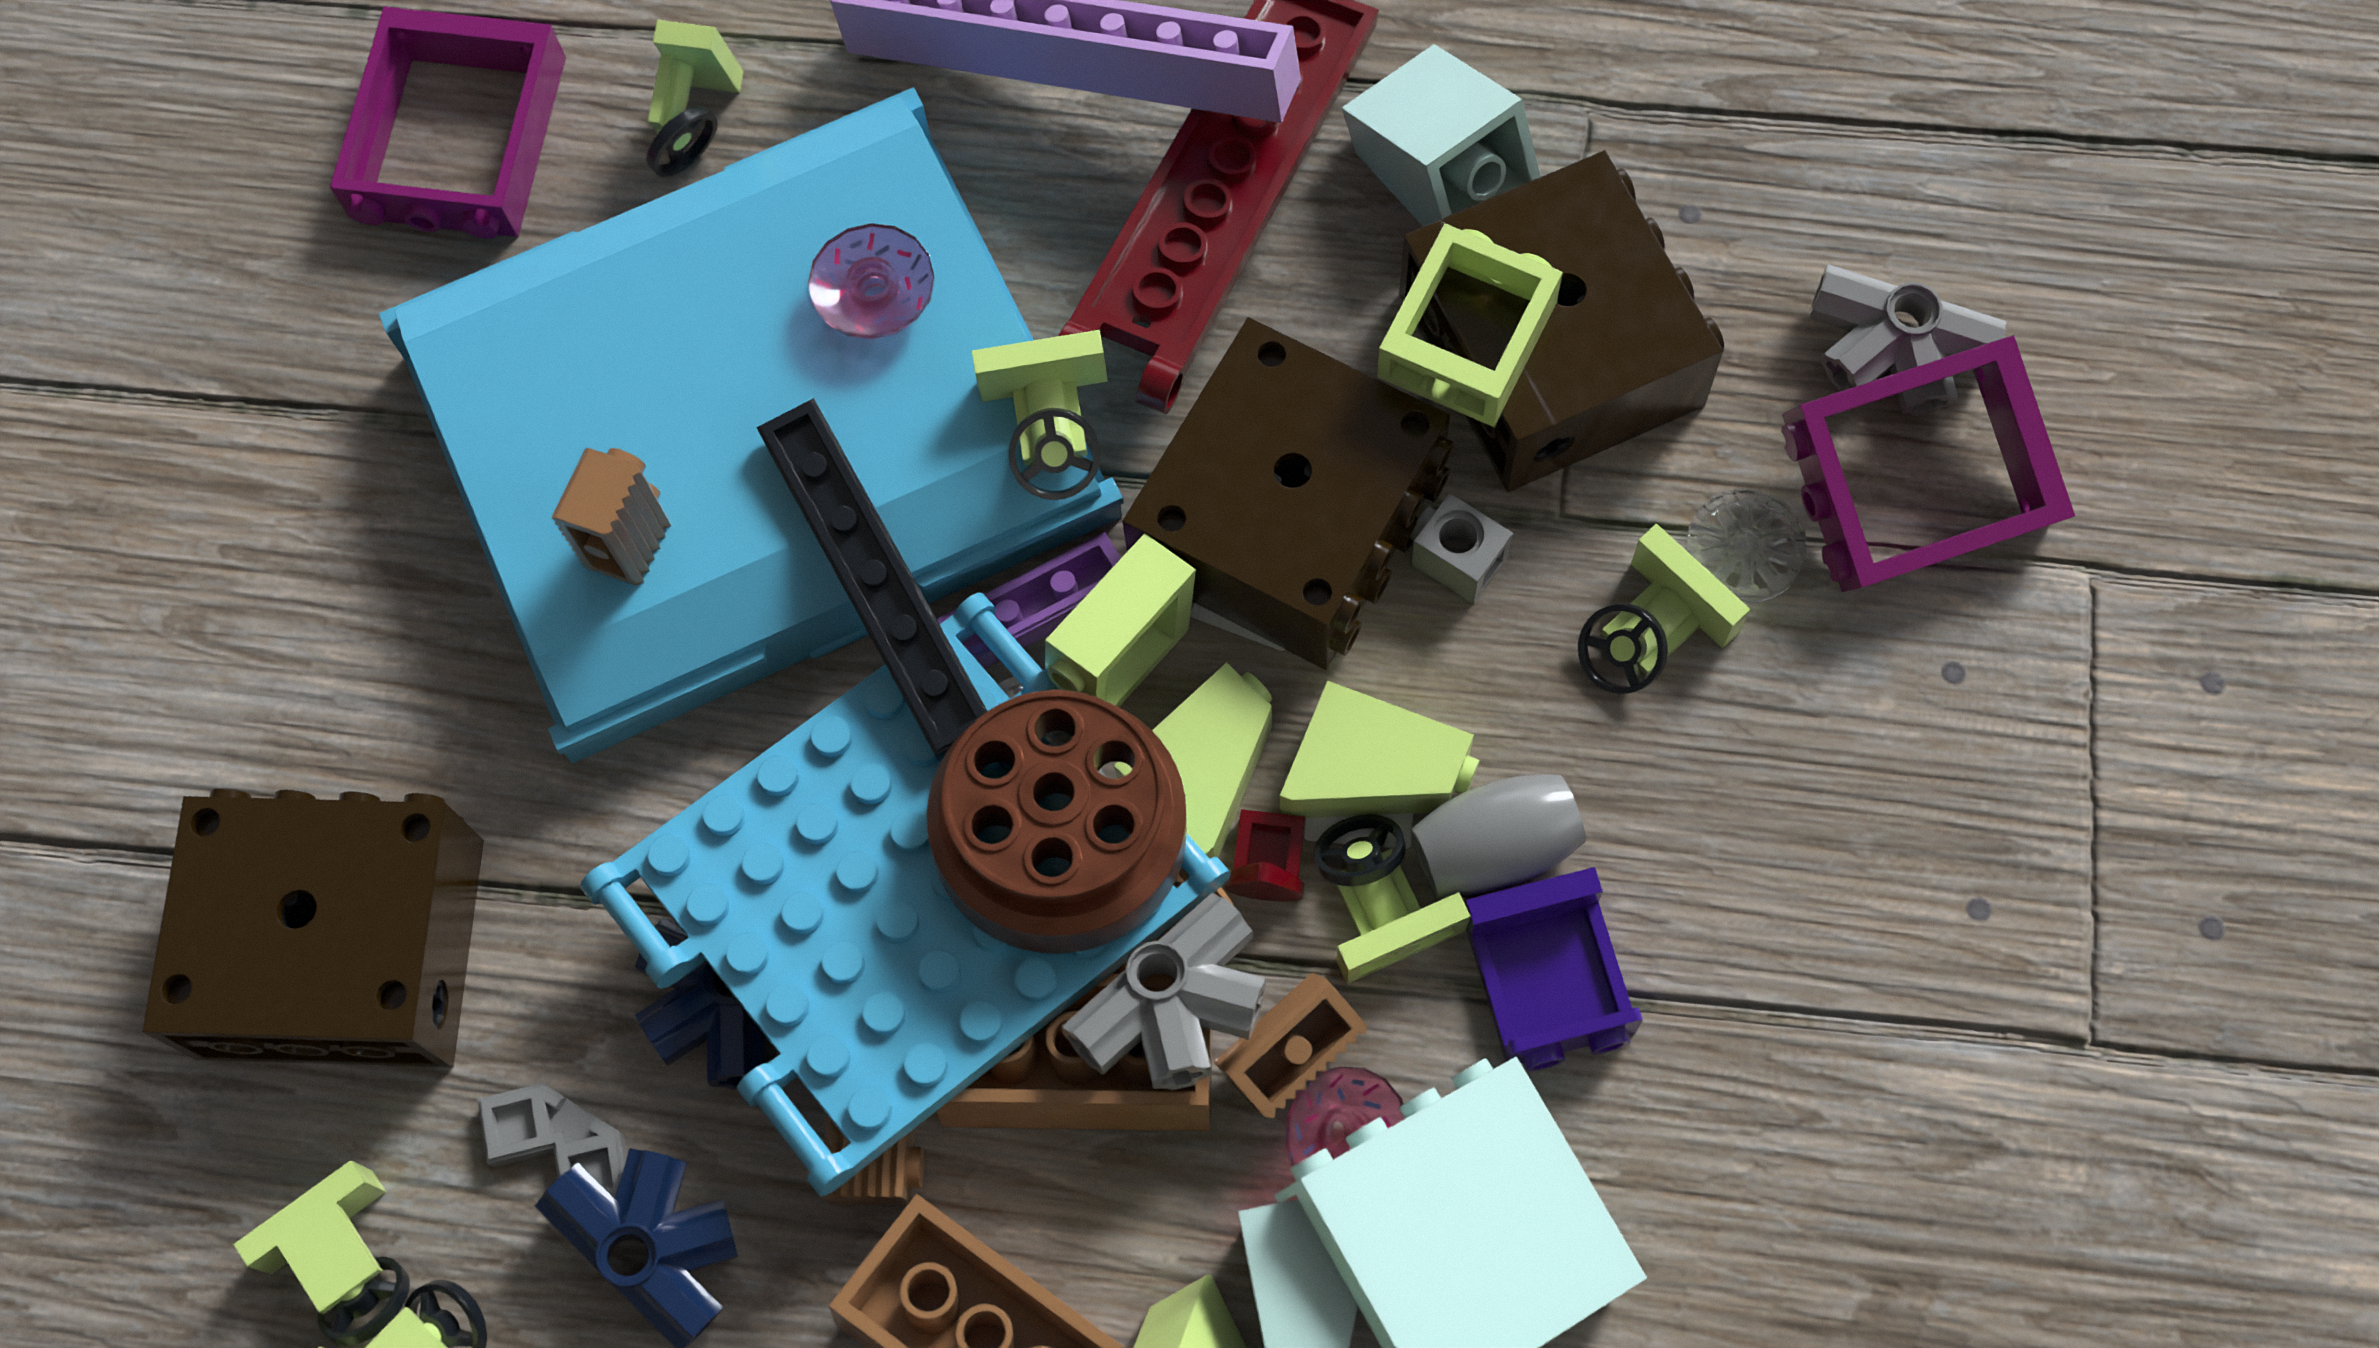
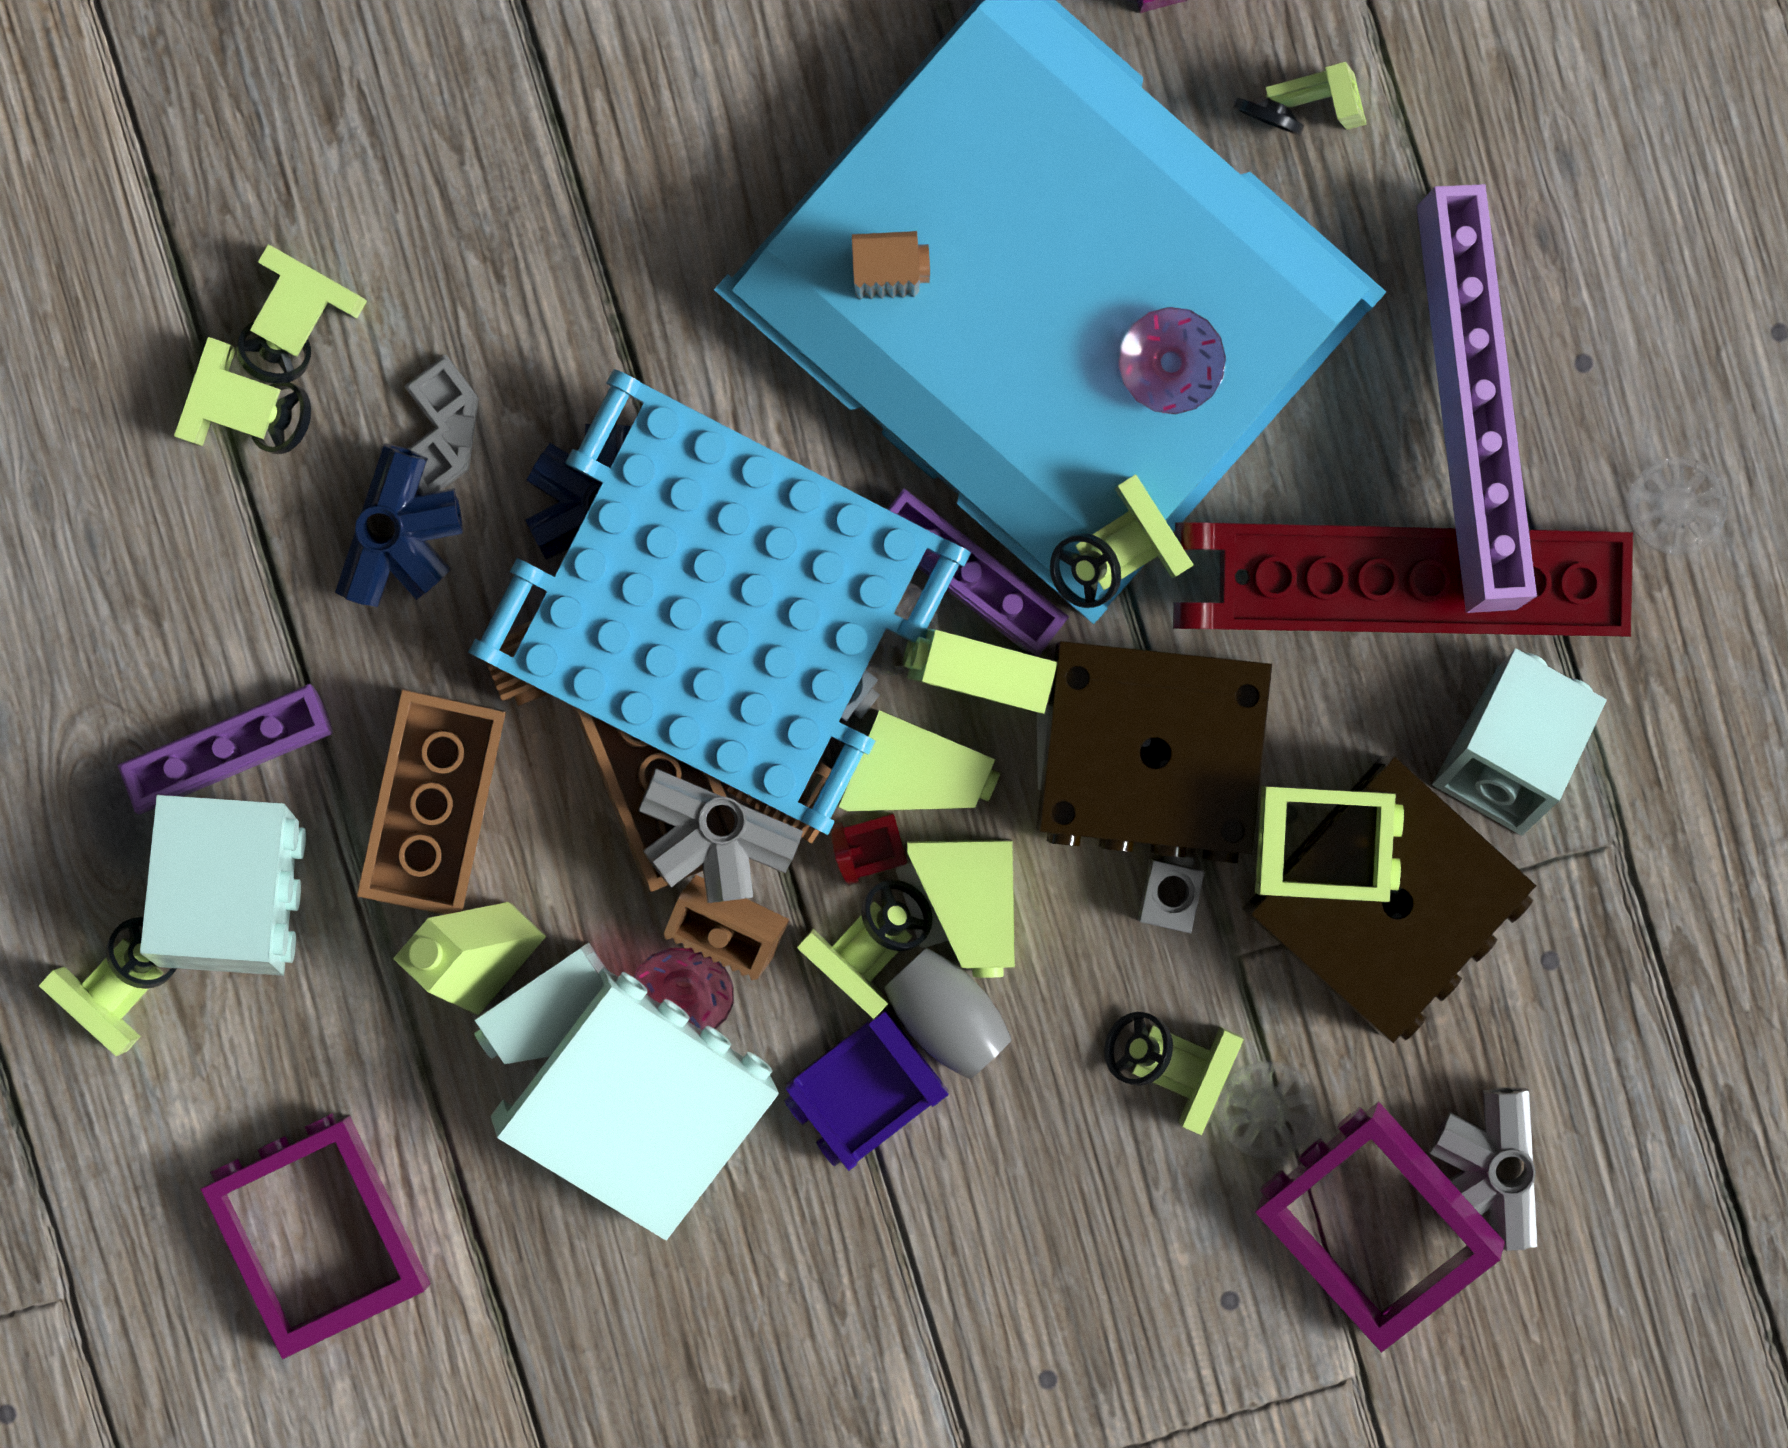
camera: 65 degrees right, 20 degrees up
(316, 930) = (463, 143): dark brown gear -> none
(873, 575) = (936, 474): black tile -> none
(1108, 884) = (731, 690): copper wheel -> none

